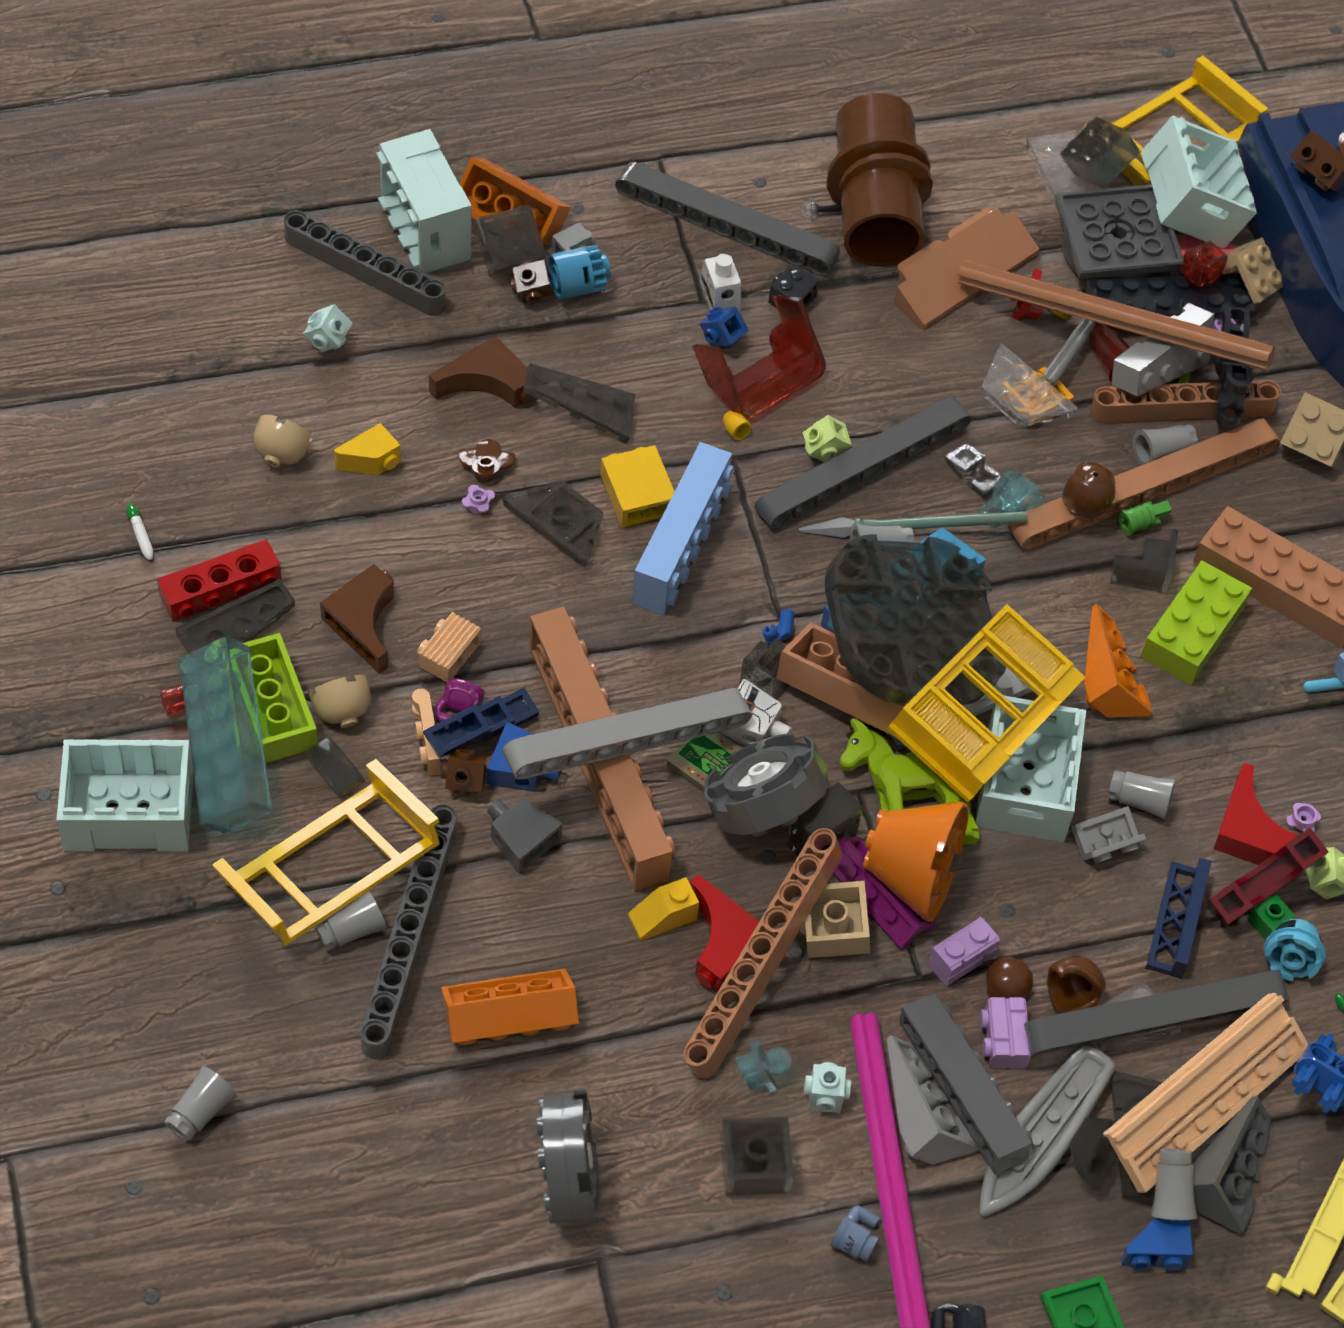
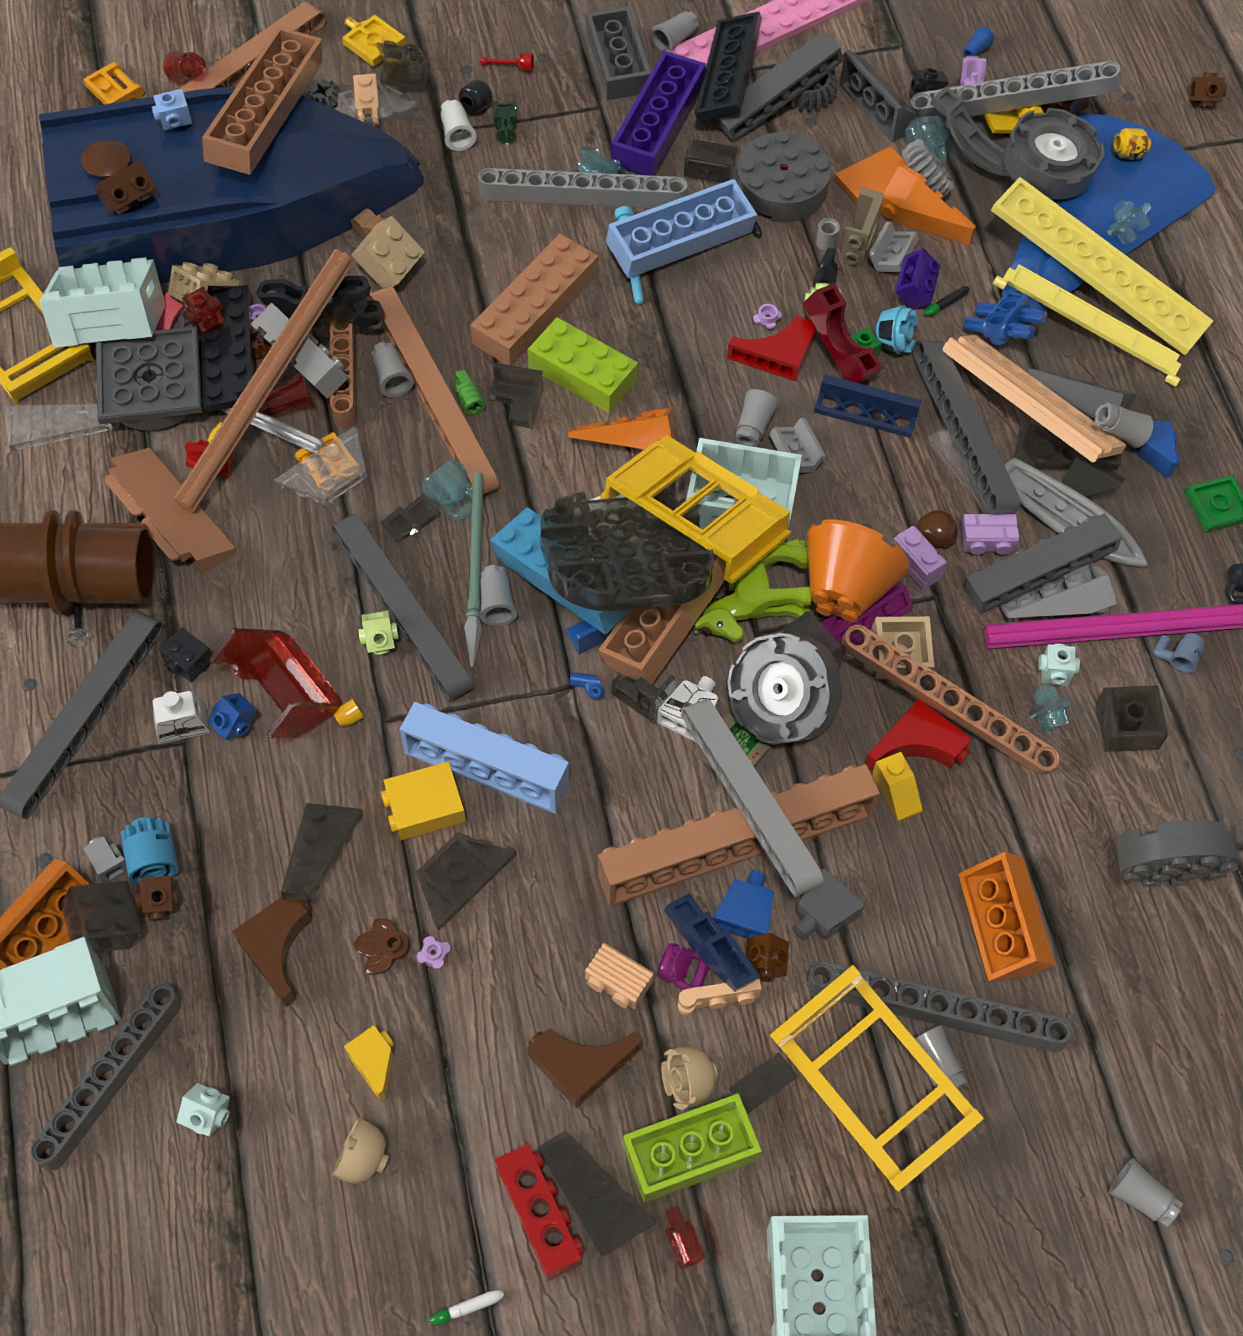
camera: 85 degrees left, 5 degrees up
(225, 735) = (751, 1185): clear light blue brick -> none
(1075, 984) = (946, 480): reddish brown piece -> none
(1089, 490) = (461, 417): reddish brown piece -> none
(1100, 152) = (58, 374): clear smoke brick -> none

